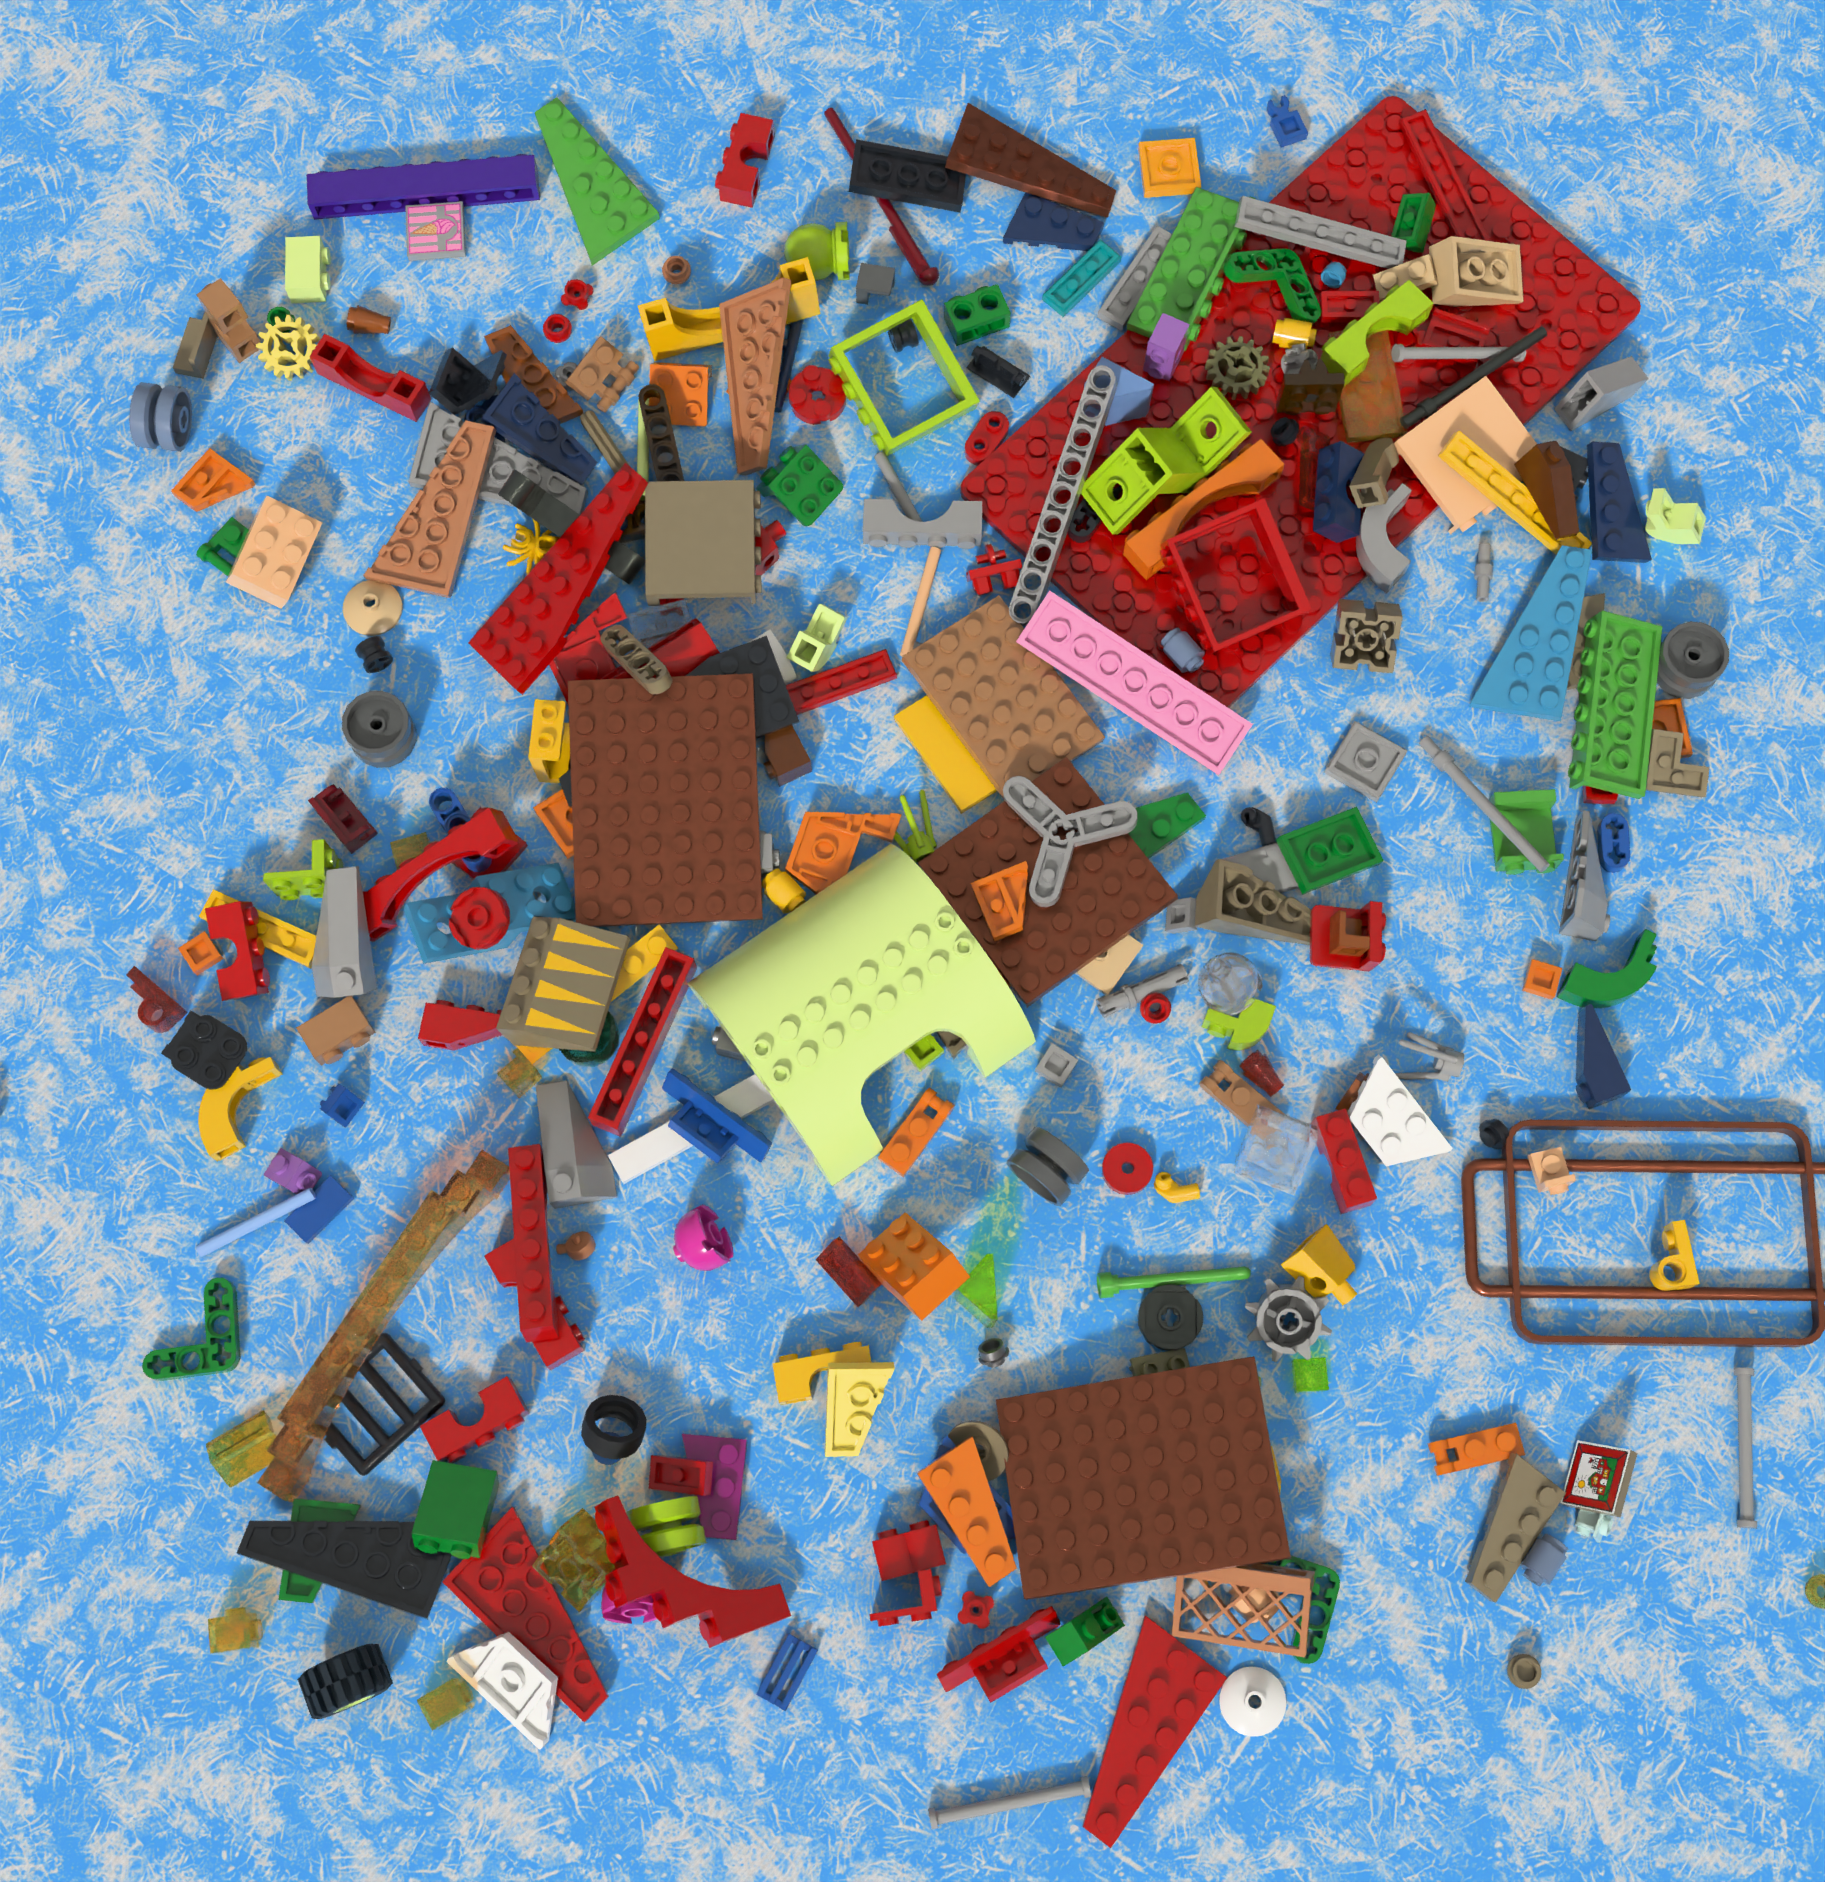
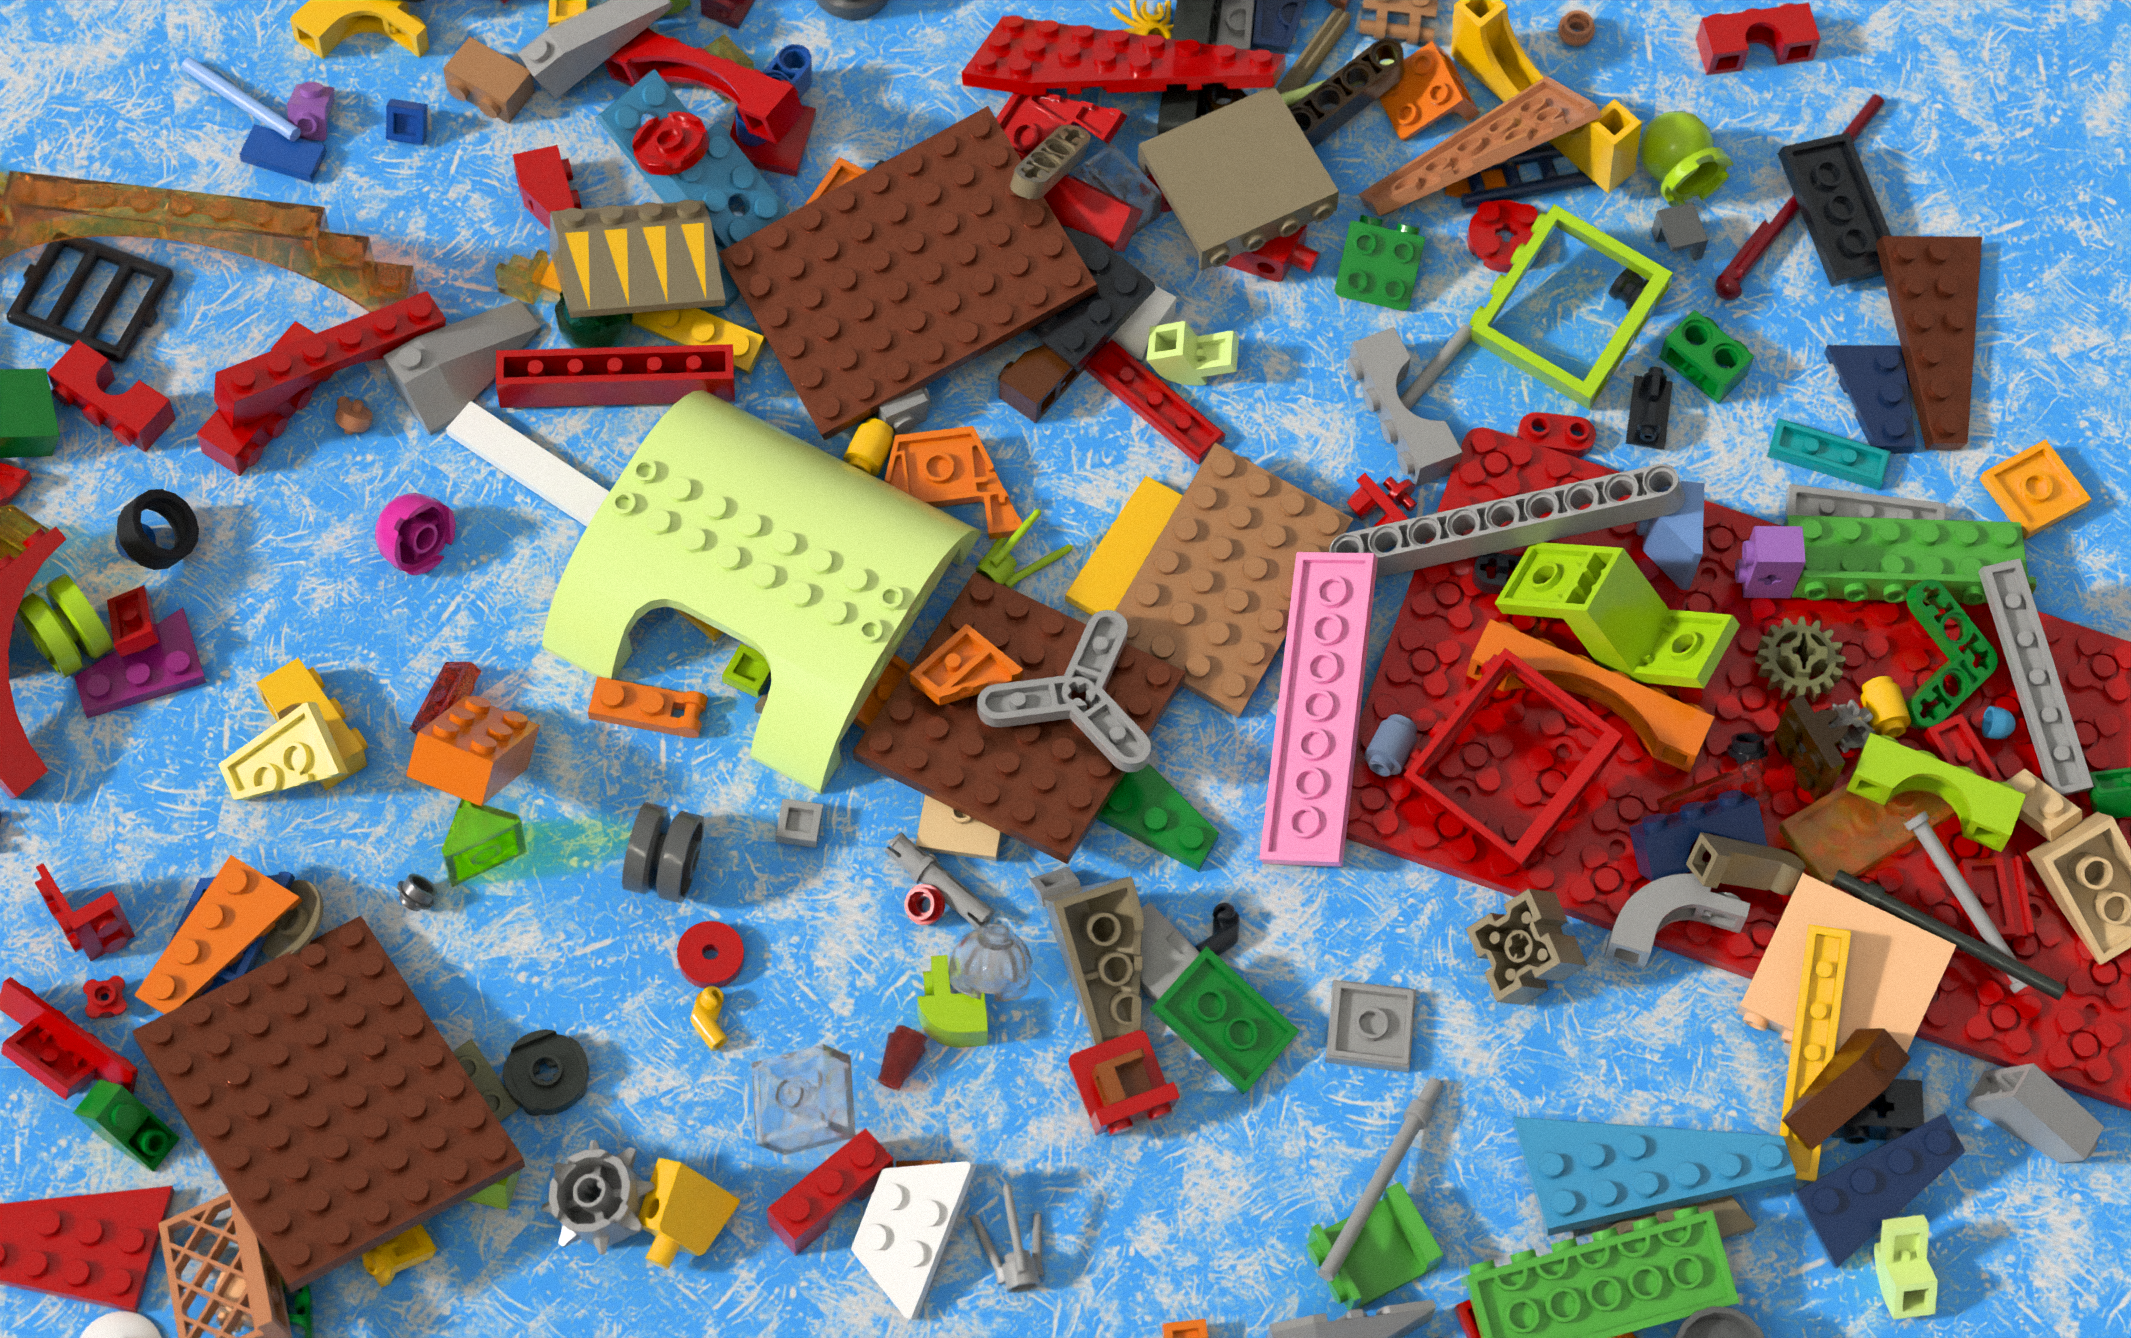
camera: 60 degrees right, 10 degrees down
(209, 1351) = (83, 120): green beam -> none
(549, 741) = (915, 120): yellow panel -> none
(709, 1123) = (547, 479): blue bracket -> none
(908, 1551) = (143, 895): red brick -> none
(921, 600) = (1313, 447): light nougat bar -> none
(1111, 1284) = (556, 988): bright green piece -> none
(1239, 1097) = (864, 1042): medium nougat plate -> none
(1310, 1375) = (546, 1263): clear neon green plate -> none
(1483, 572) = (1702, 1067): light grey bar -> none

